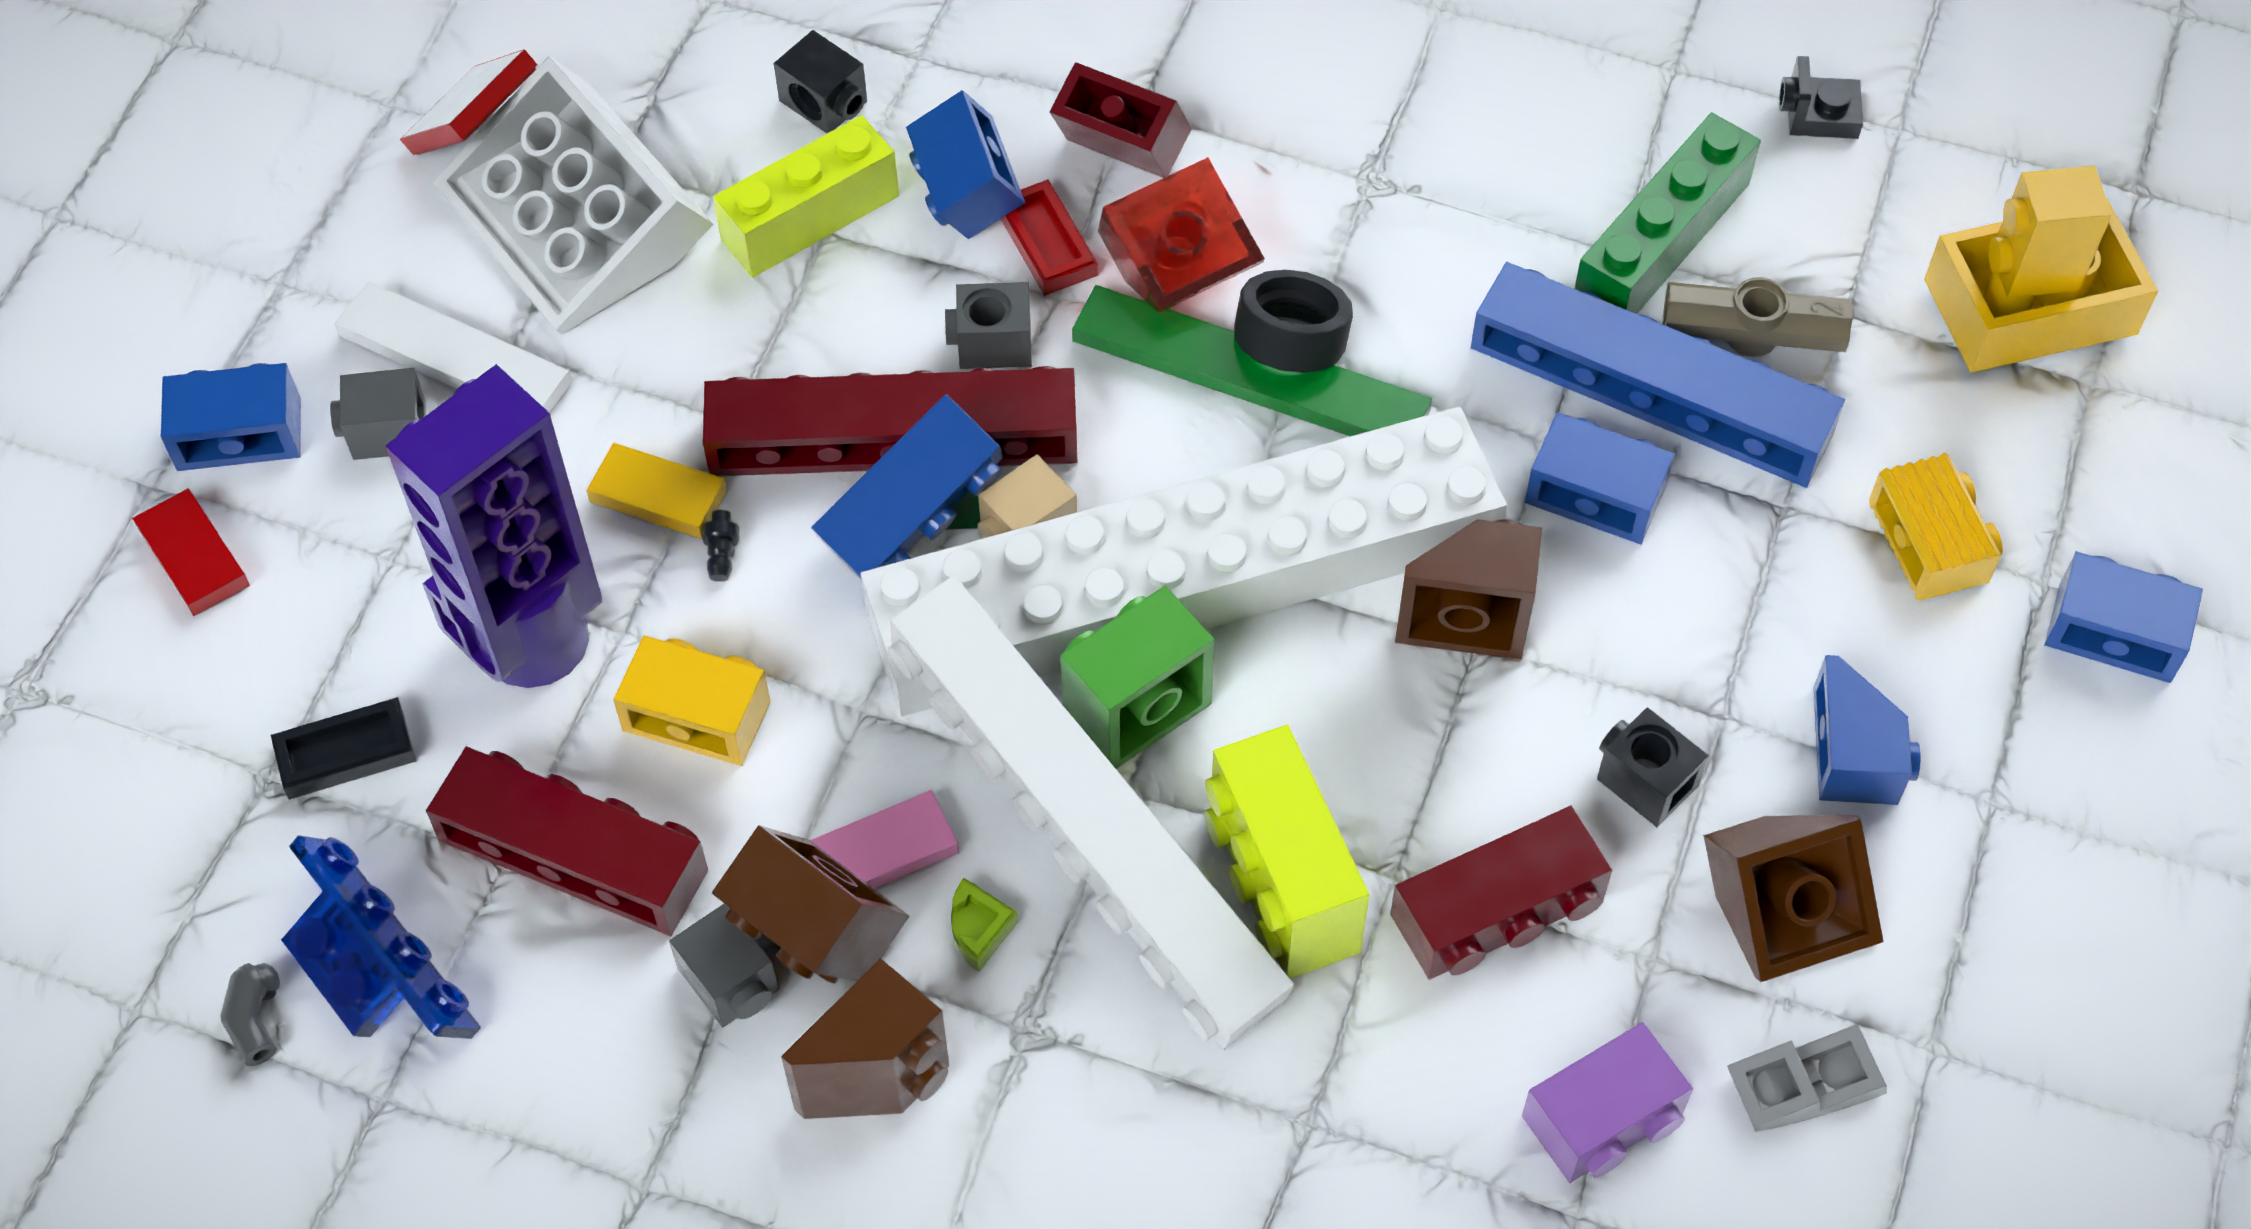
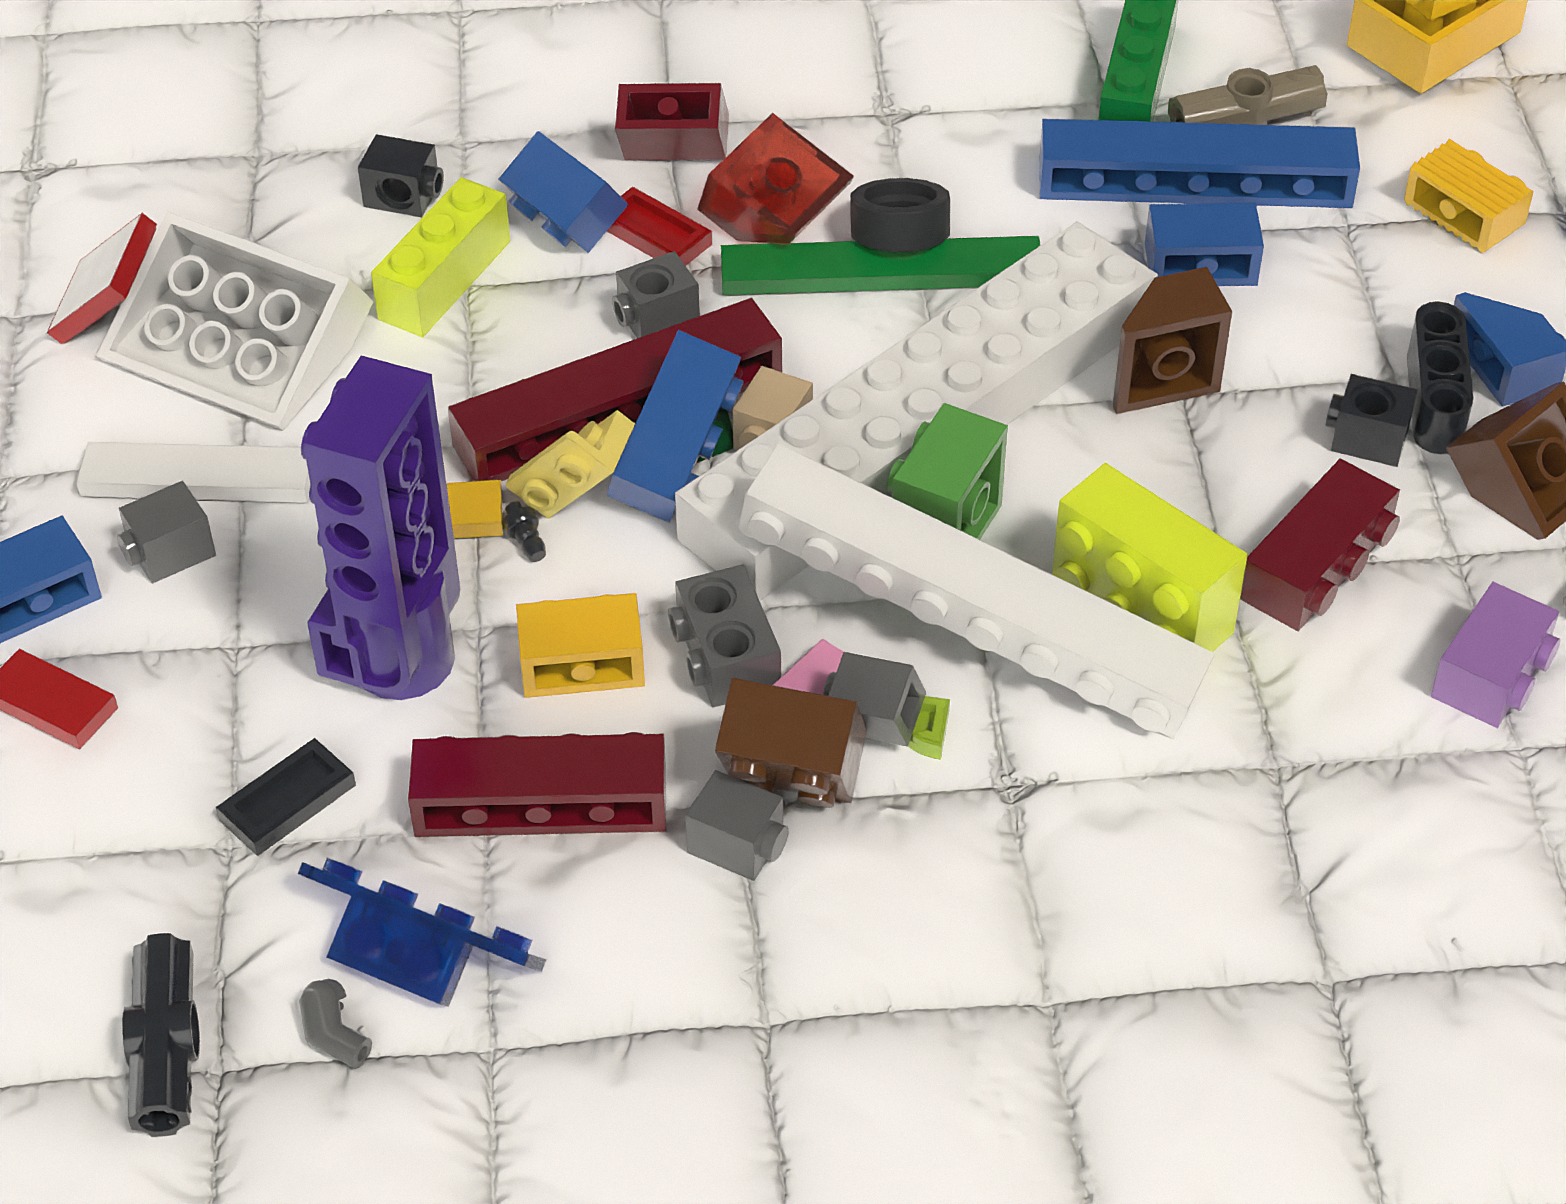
camera: 25 degrees left, 10 degrees down
(93, 957) = (161, 1035): none -> black piece
(786, 499) = (571, 465): none -> light yellow bracket
(843, 748) = (724, 632): none -> dark grey brick
(869, 1051) = (912, 828): reddish brown slope -> none
(929, 886) = (885, 692): none -> dark grey brick
(1763, 717) = (1442, 374): none -> black beam

